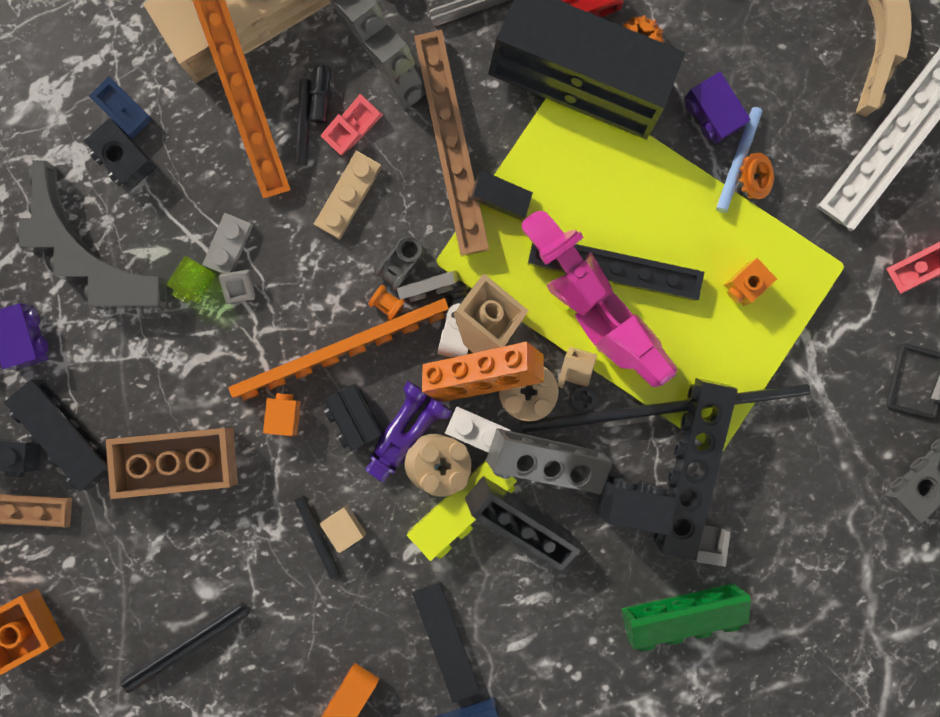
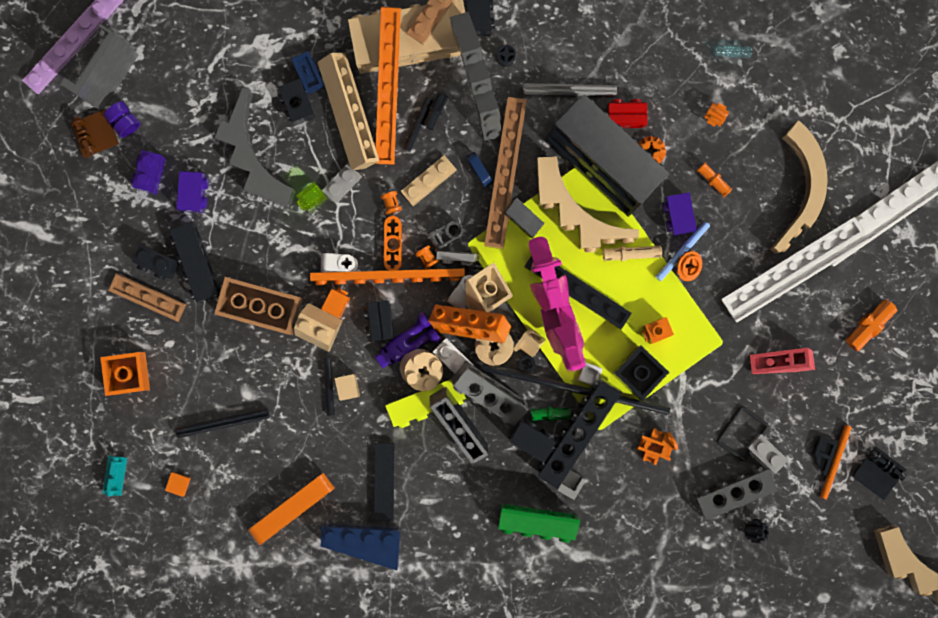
camera: 30 degrees right, 0 degrees up
(196, 138) = (348, 111): none -> tan brick
(237, 286) = (338, 212): light grey tile -> none
(261, 358) = (335, 263): none -> white piece
(267, 459) = (317, 327): none -> tan slope
(306, 245) = (391, 202): none -> orange bush
(330, 280) = (398, 229): none -> orange beam
(352, 125) = (448, 137): coral slope -> none
(412, 151) = (479, 169): none -> dark blue beam
(602, 177) = (591, 231): none -> tan arch
(642, 456) = (550, 414): none -> green pin
(661, 192) = (632, 253): none -> tan pin
(681, 382) = (590, 373): none -> white tile
(744, 44) = (714, 180): none -> orange pin
(750, 350) = (640, 372): none -> black brick
(804, 443) = (654, 445): none -> orange piece

